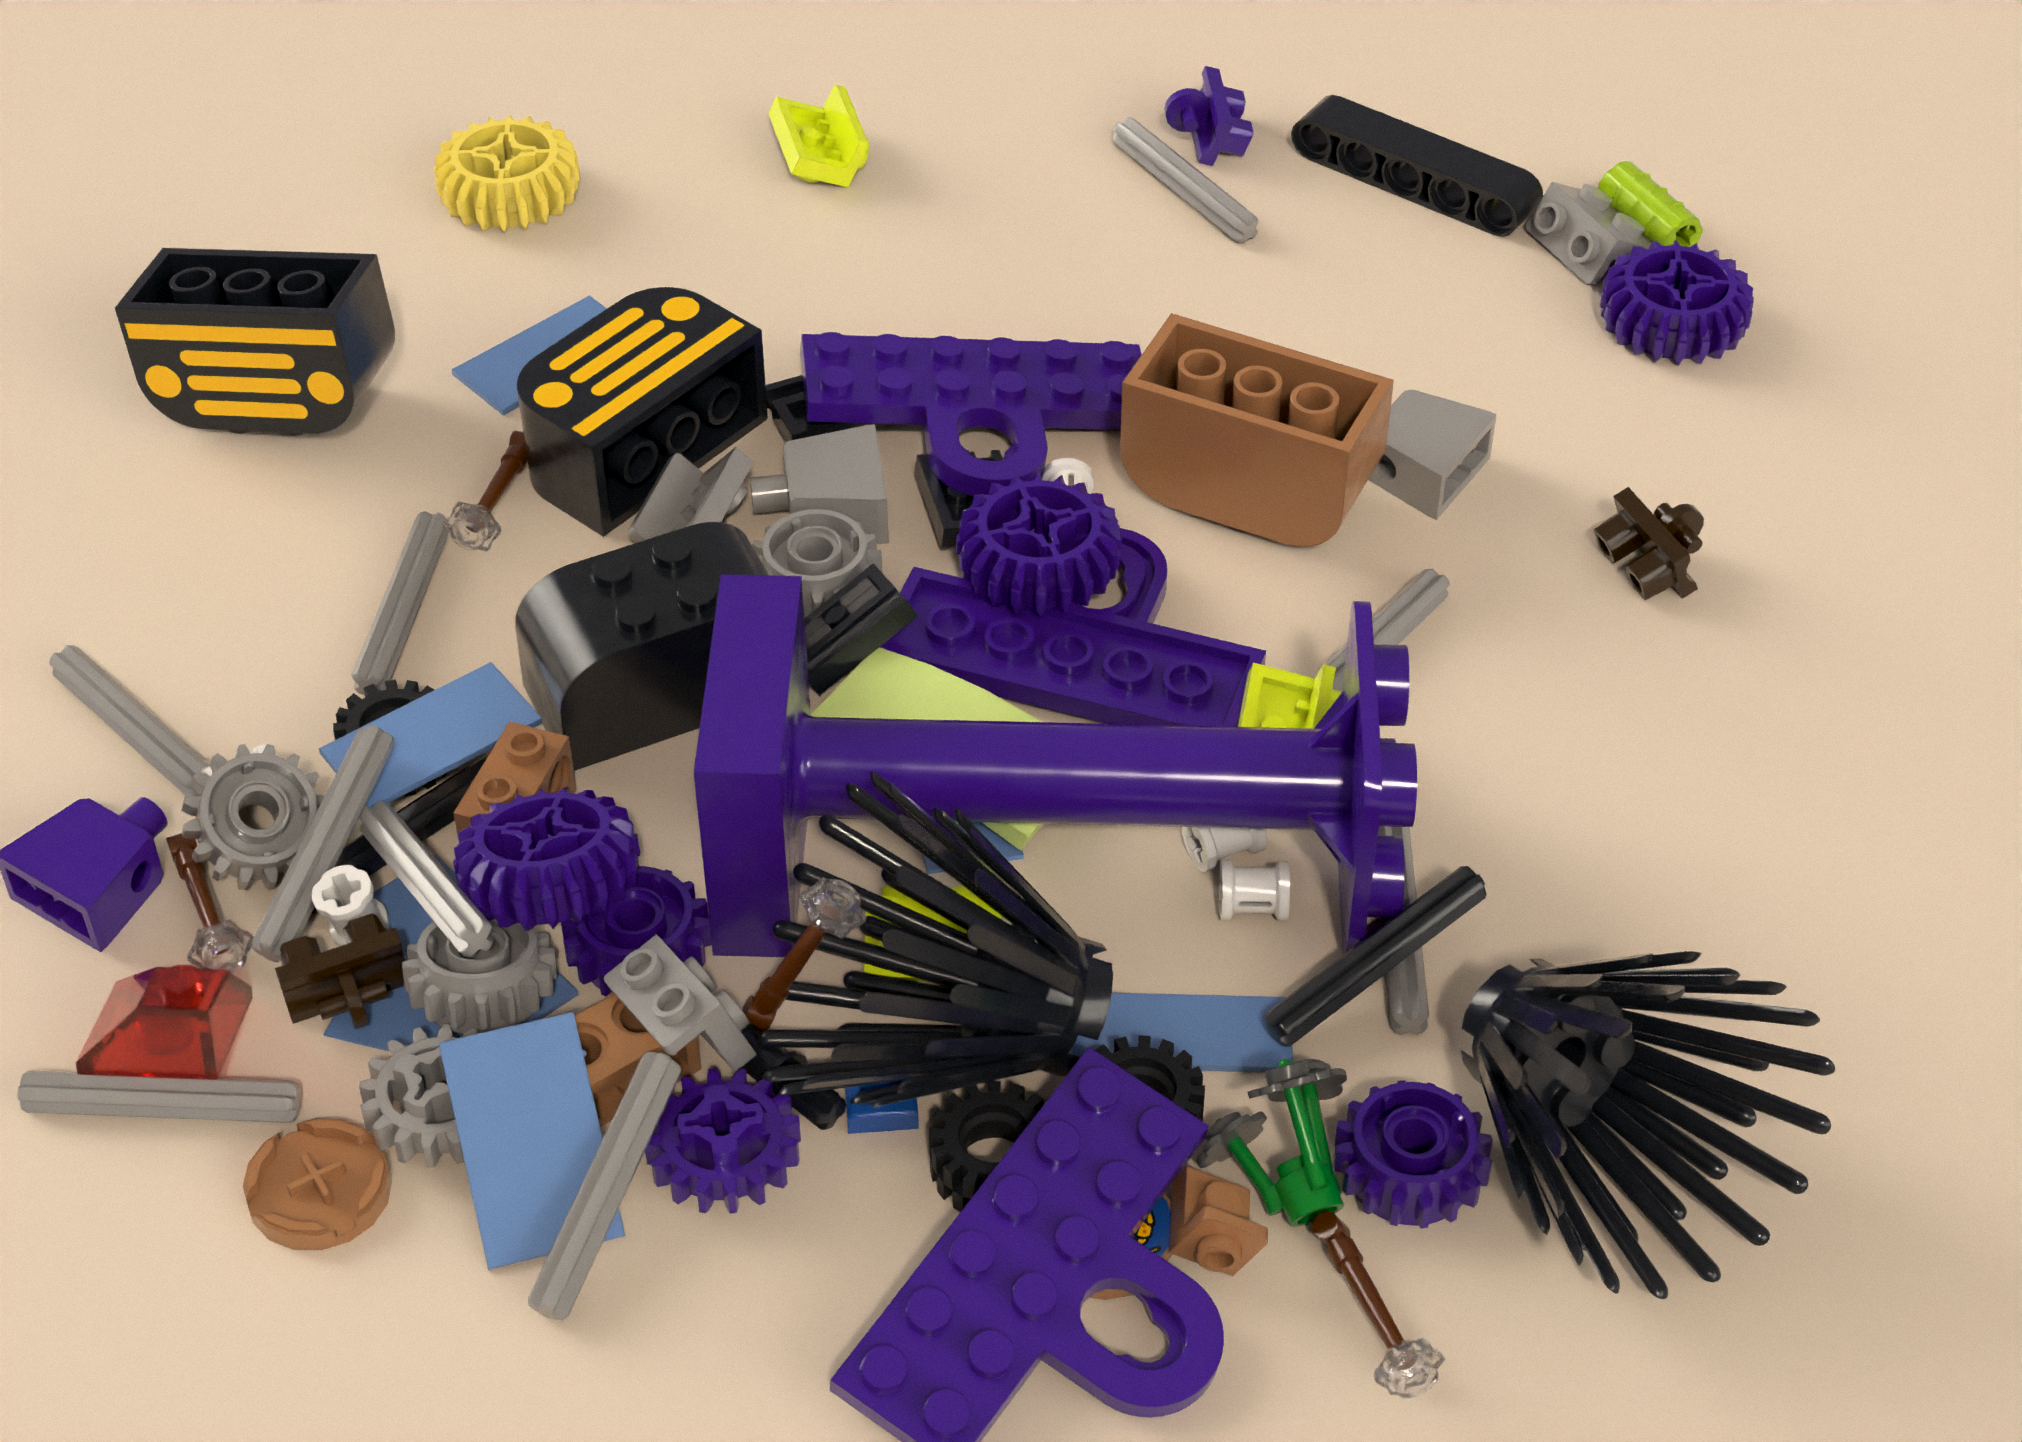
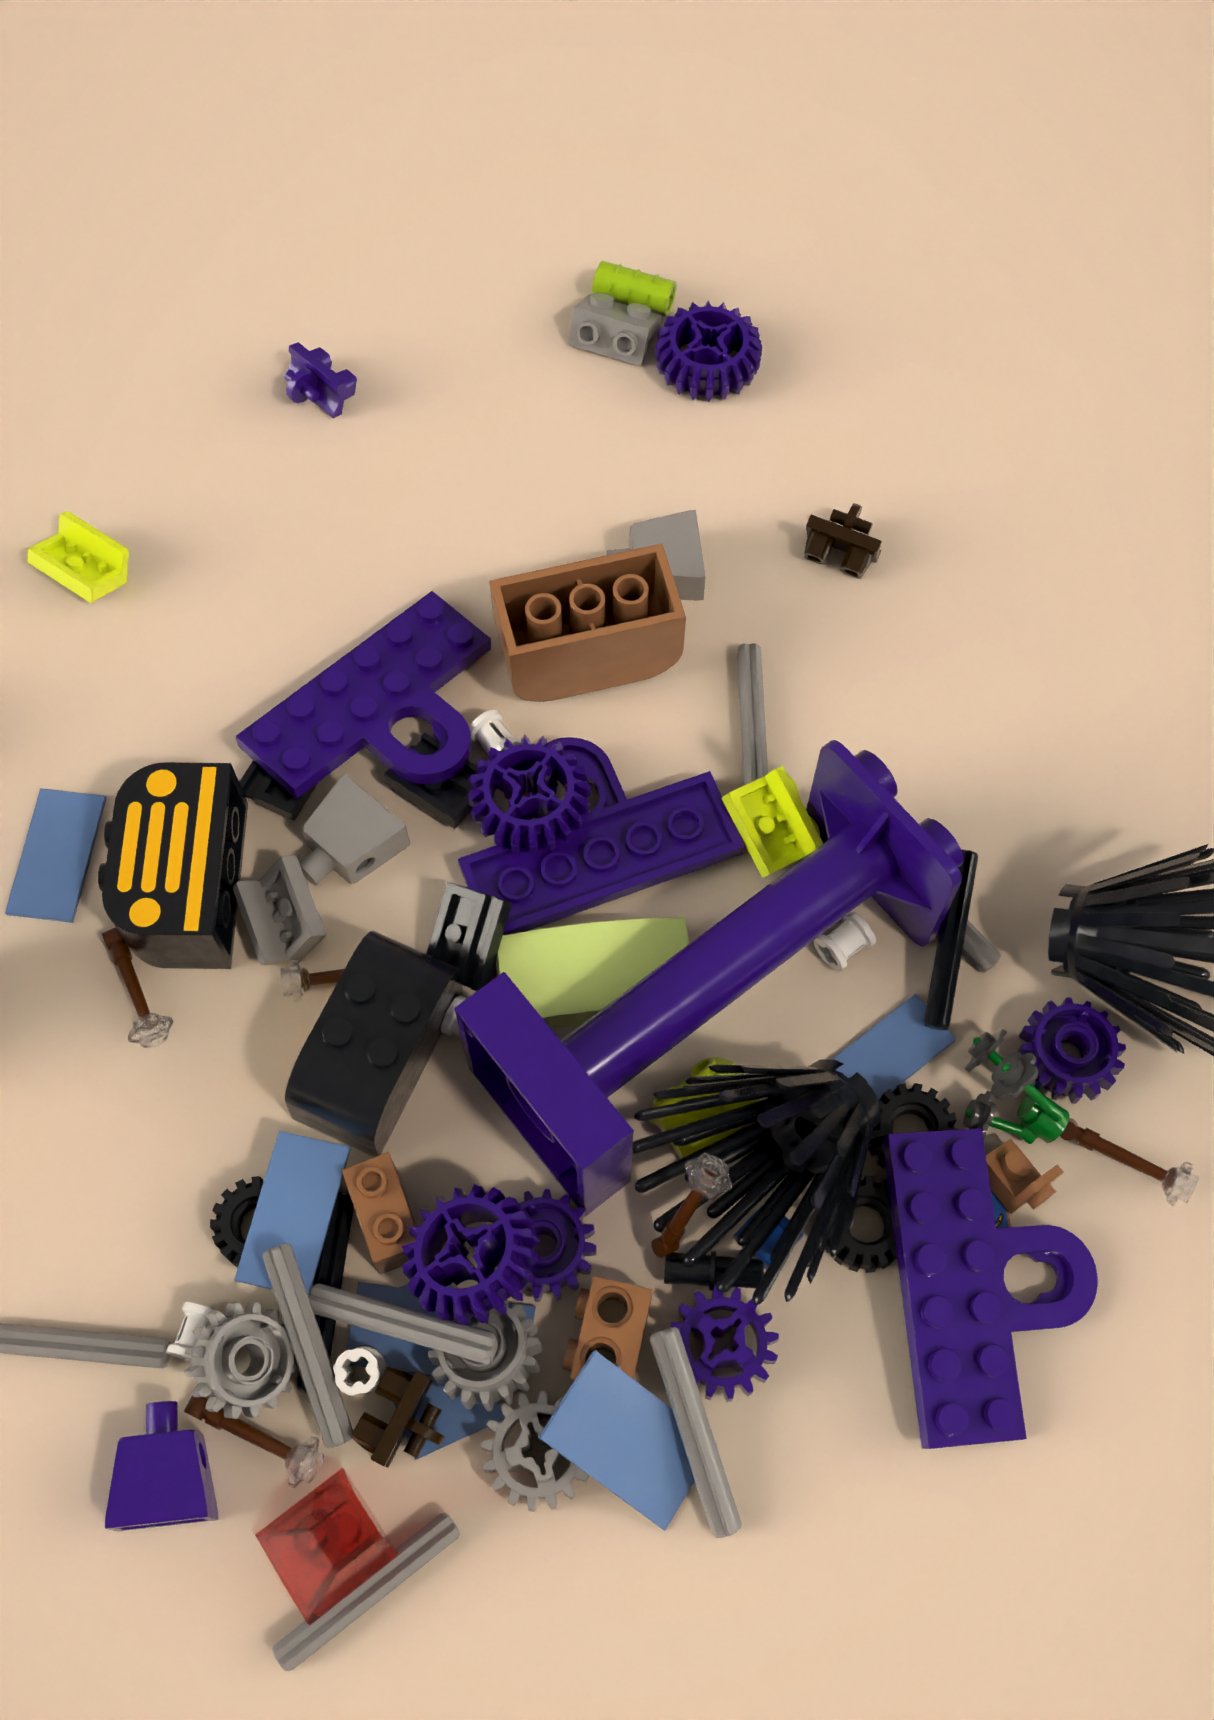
camera: 40 degrees left, 20 degrees up
(317, 1185) = (517, 1564): medium nougat tile -> none
(400, 602) = (157, 1120): light grey axle -> none
(678, 1004) = (633, 1289): light grey bracket -> none
(821, 548) = (391, 878): light grey gear -> none
(1185, 180) = (340, 439): light grey axle -> none
(1417, 165) = (472, 339): black beam -> none

